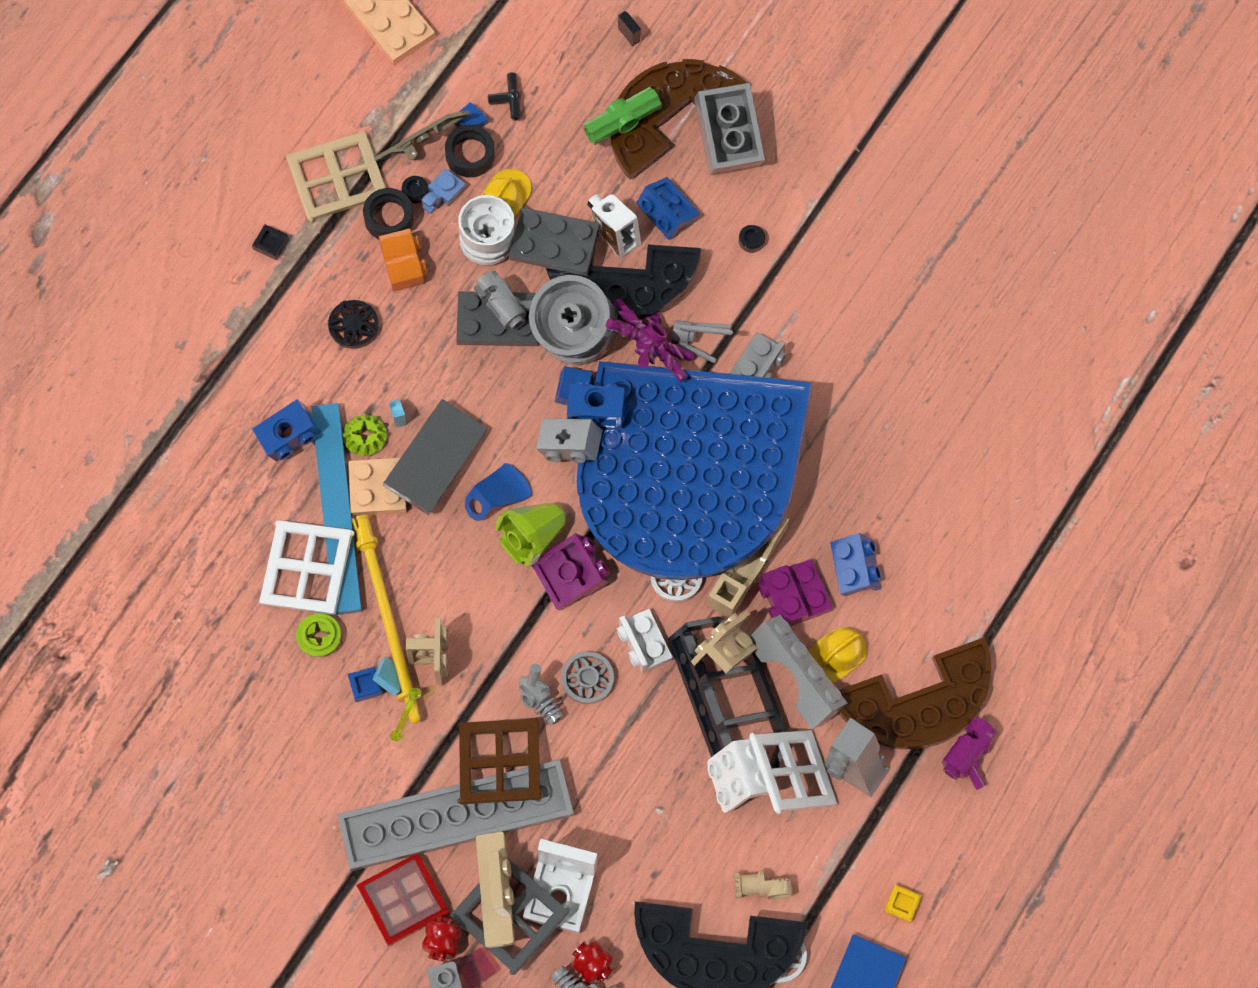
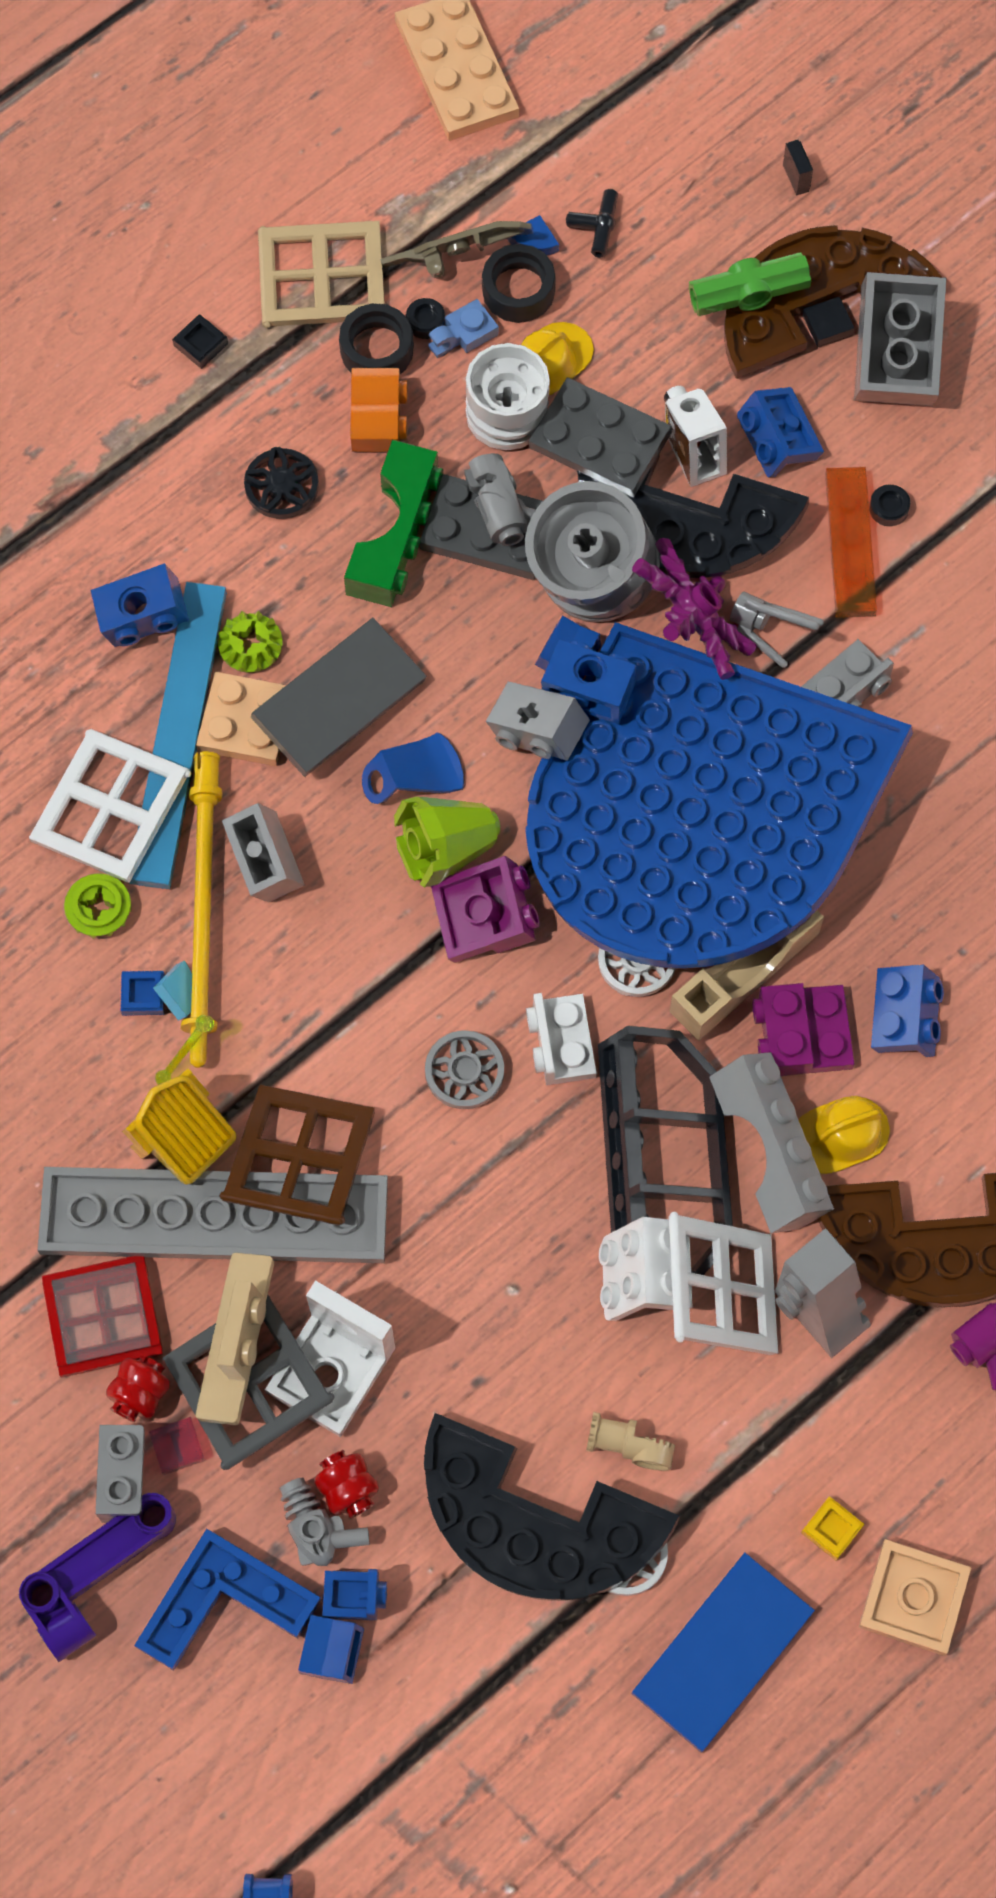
camera: 20 degrees right, 0 degrees up
(397, 412) = (305, 622): medium azure tile -> none
(417, 572) = (263, 852): none -> light grey brick
(420, 765) = (180, 1128): none -> yellow piece
(429, 651) = (247, 969): tan bracket -> none
(434, 363) = (379, 564): none -> green arch
(536, 695) = (382, 1074): light grey piece -> none
(678, 126) = (828, 321): none -> black tile
(727, 644) = (679, 1073): tan bracket -> none
(733, 269) = (850, 542): none -> clear orange tile
(965, 932) = (915, 1597): none -> light nougat plate

